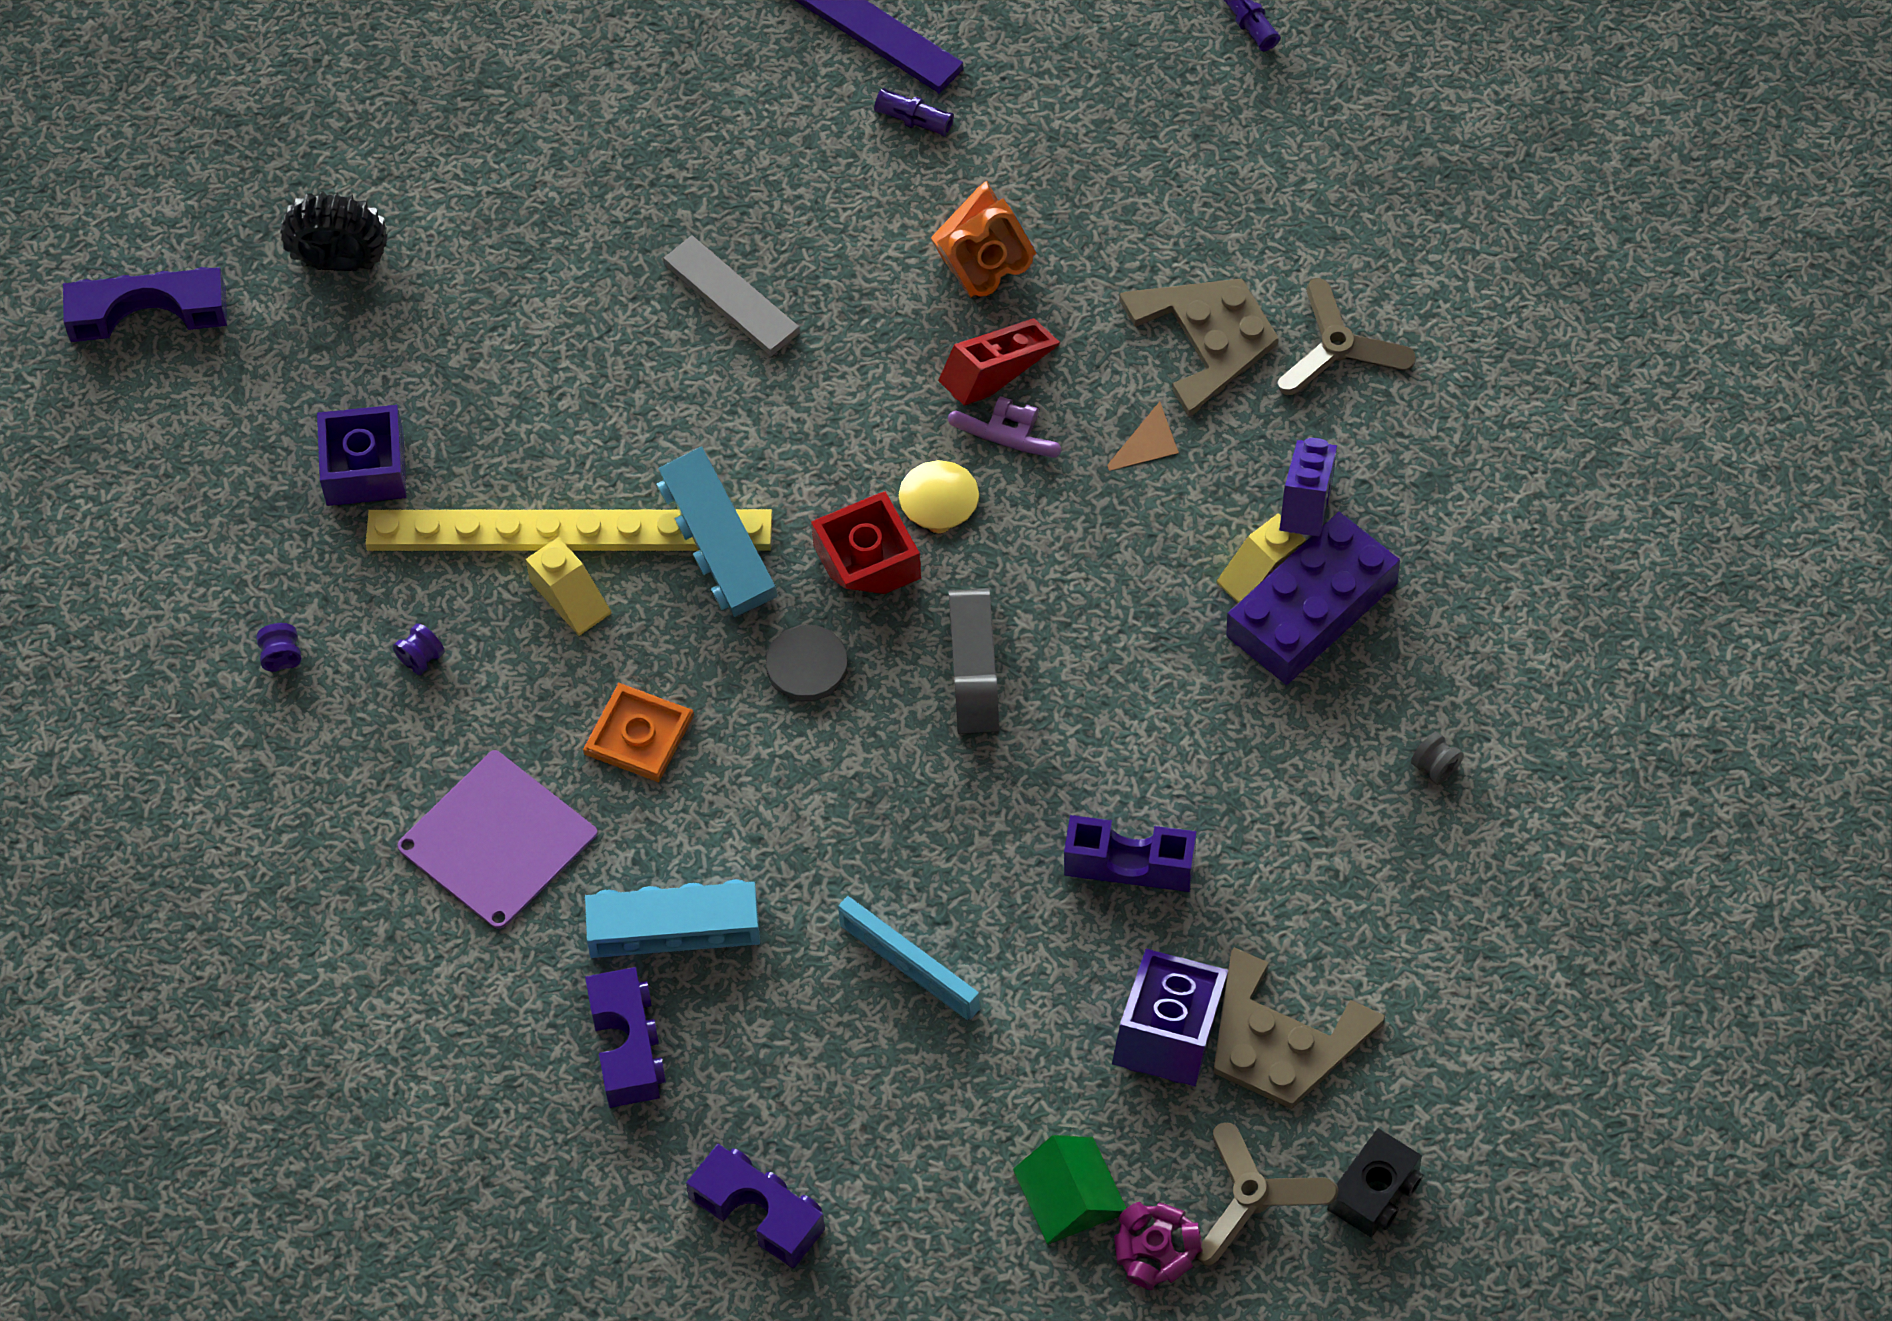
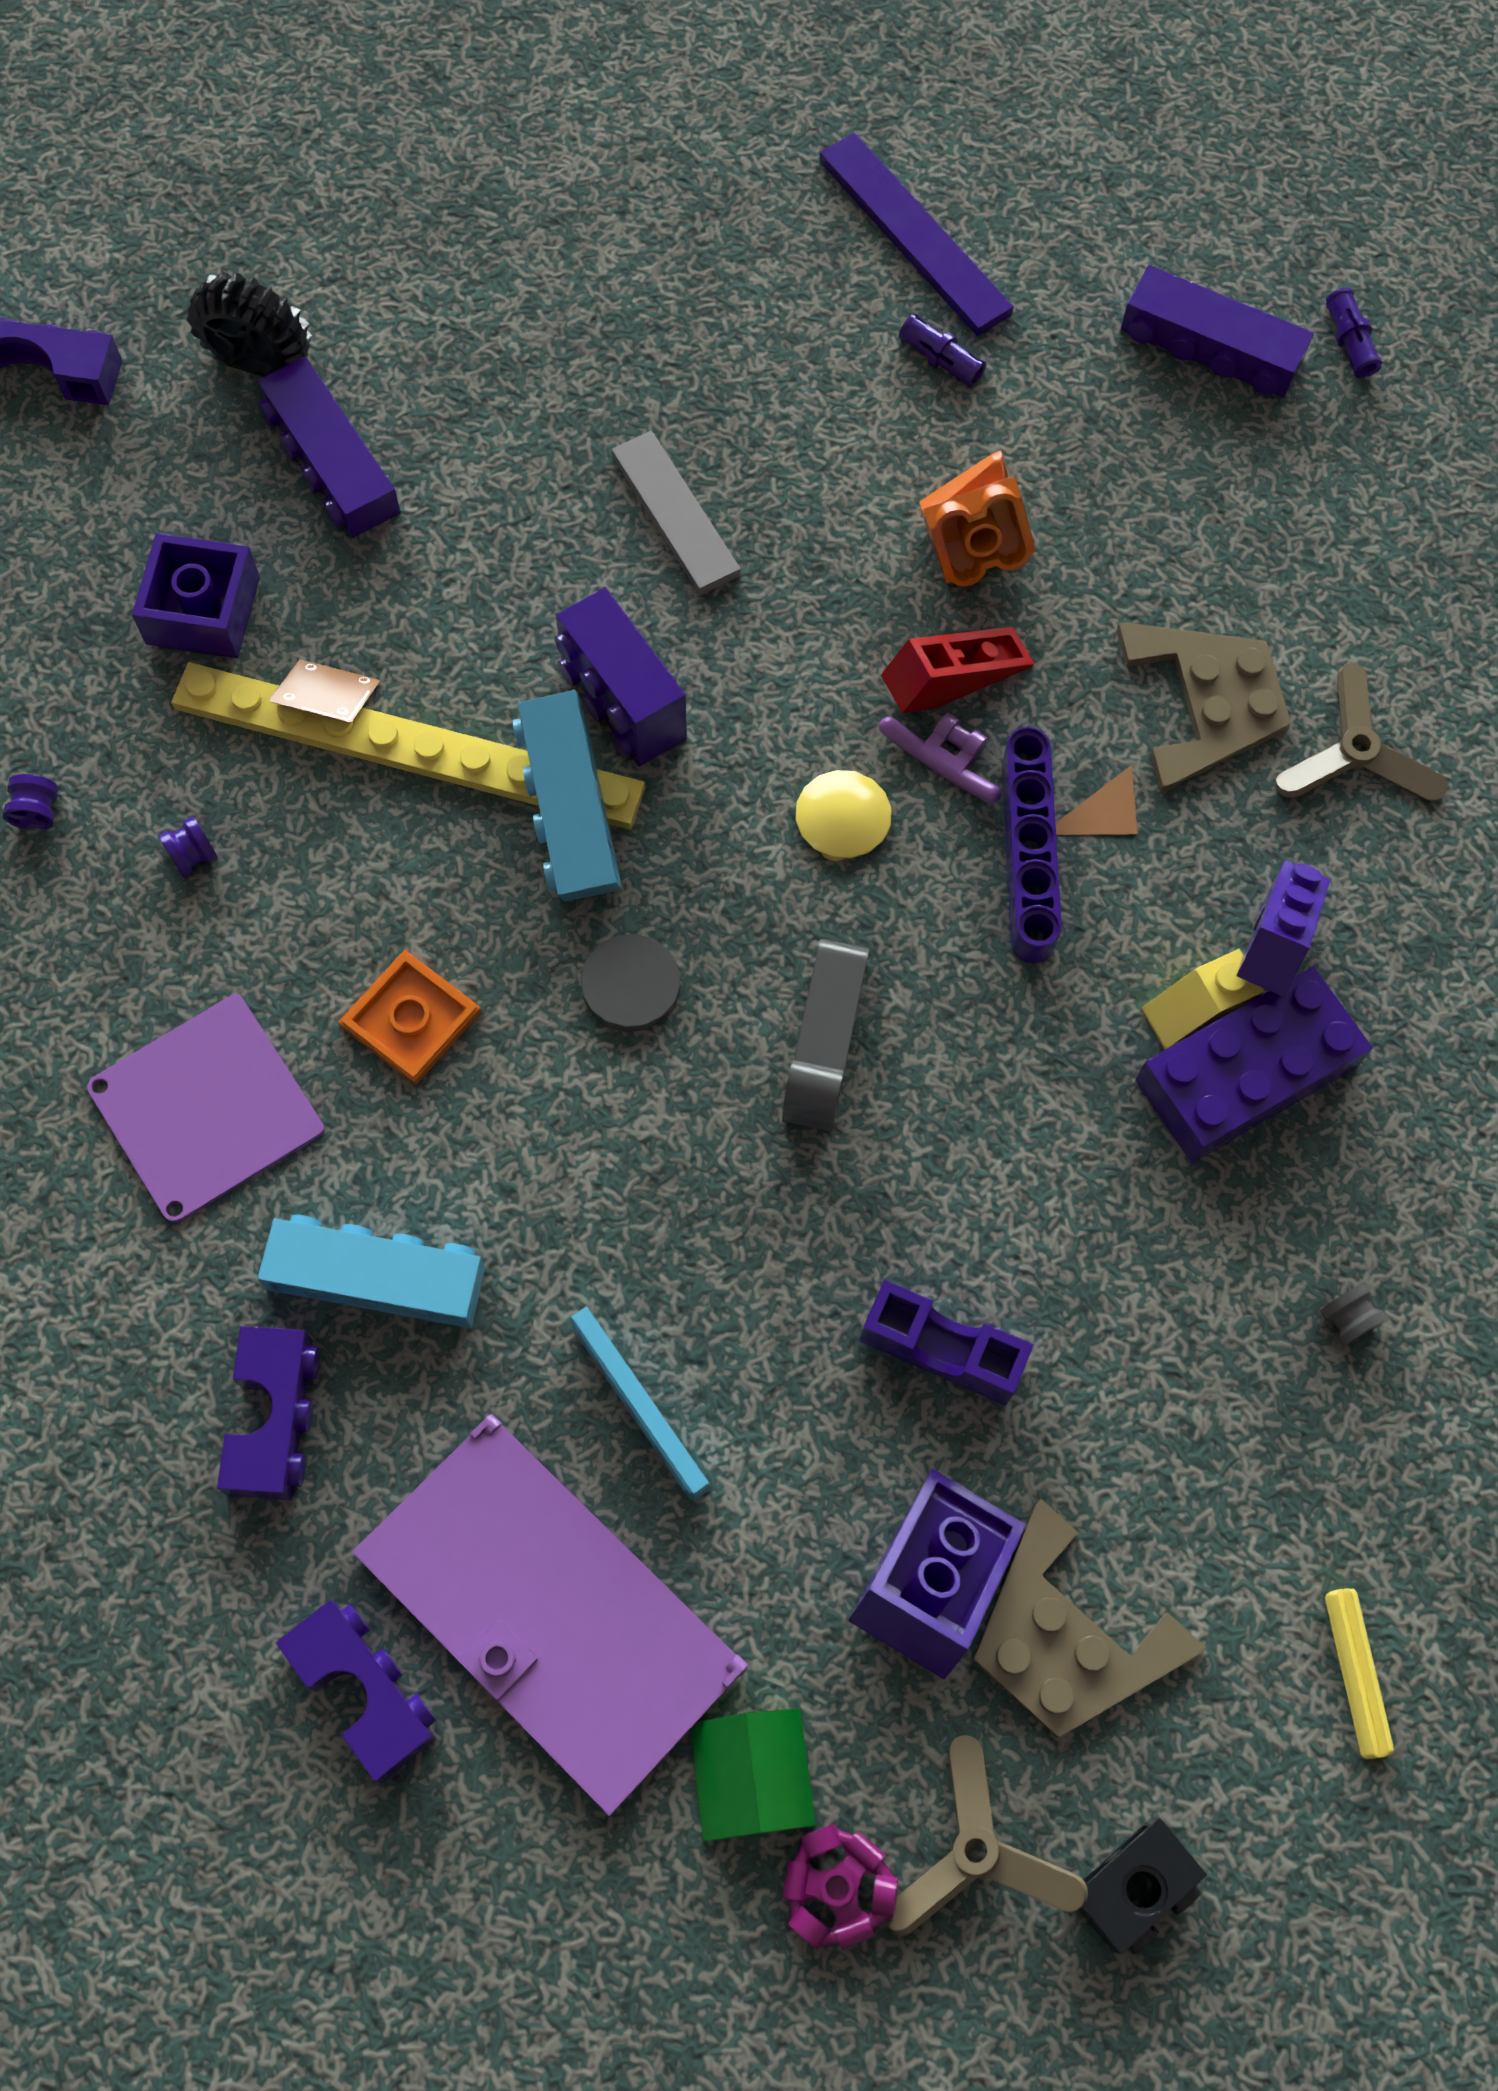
camera: 10 degrees right, 10 degrees up
(427, 313) = (328, 447): none -> dark purple brick
(489, 504) = (324, 691): none -> sticker
(567, 586) = (381, 815): light yellow slope -> none
(733, 432) = (620, 677): none -> dark purple brick
(867, 546) = (739, 860): red slope -> none
(883, 1118) = (550, 1613): none -> medium lavender door
(1095, 464) = (1035, 824): none -> dark purple beam
(1136, 43) = (1216, 331): none -> dark purple brick
(1504, 1005) = (1359, 1674): none -> light yellow axle

